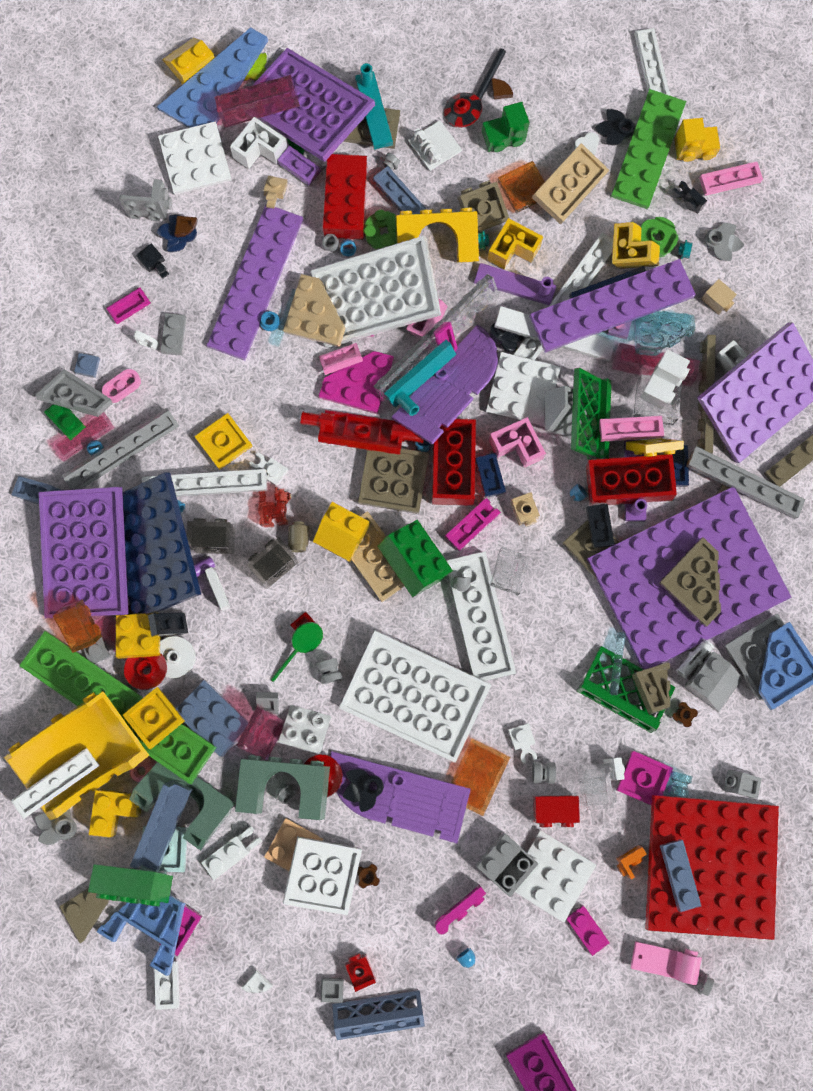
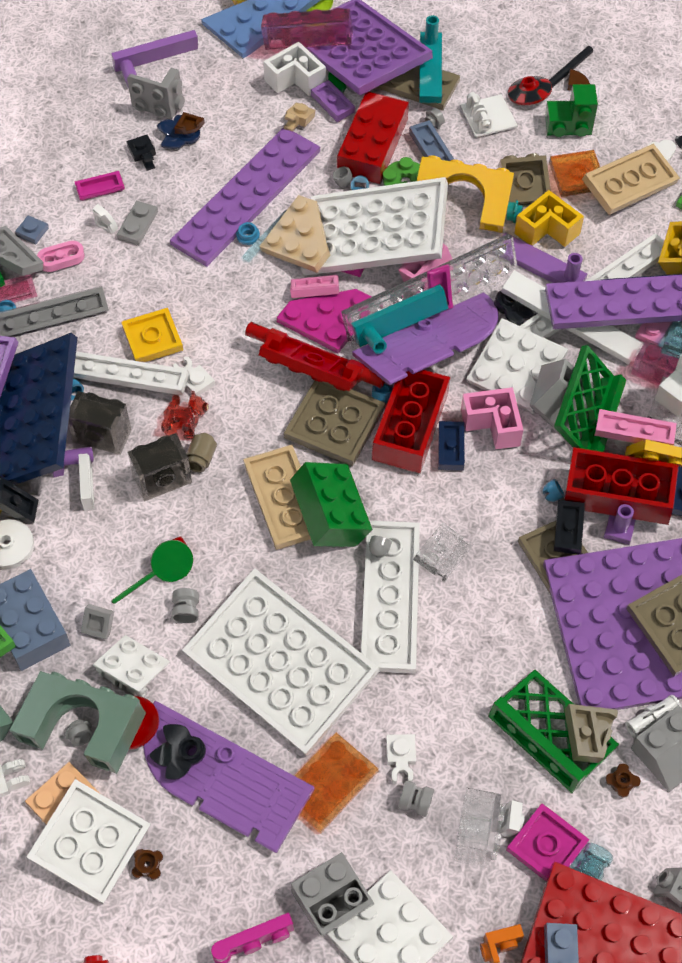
camera: 20 degrees right, 20 degrees down
(106, 170) = (127, 59): none -> medium lavender piece
(194, 158) = (223, 70): white plate -> none
(261, 733) = (75, 647): clear pink plate -> none
(341, 531) = (253, 453): yellow slope -> none
(472, 525) = (413, 492): dark pink plate -> none
(525, 518) = (482, 490): tan brick -> none
(556, 809) = (418, 847): red brick -> none
(617, 664) = (549, 692): clear light blue bar -> none

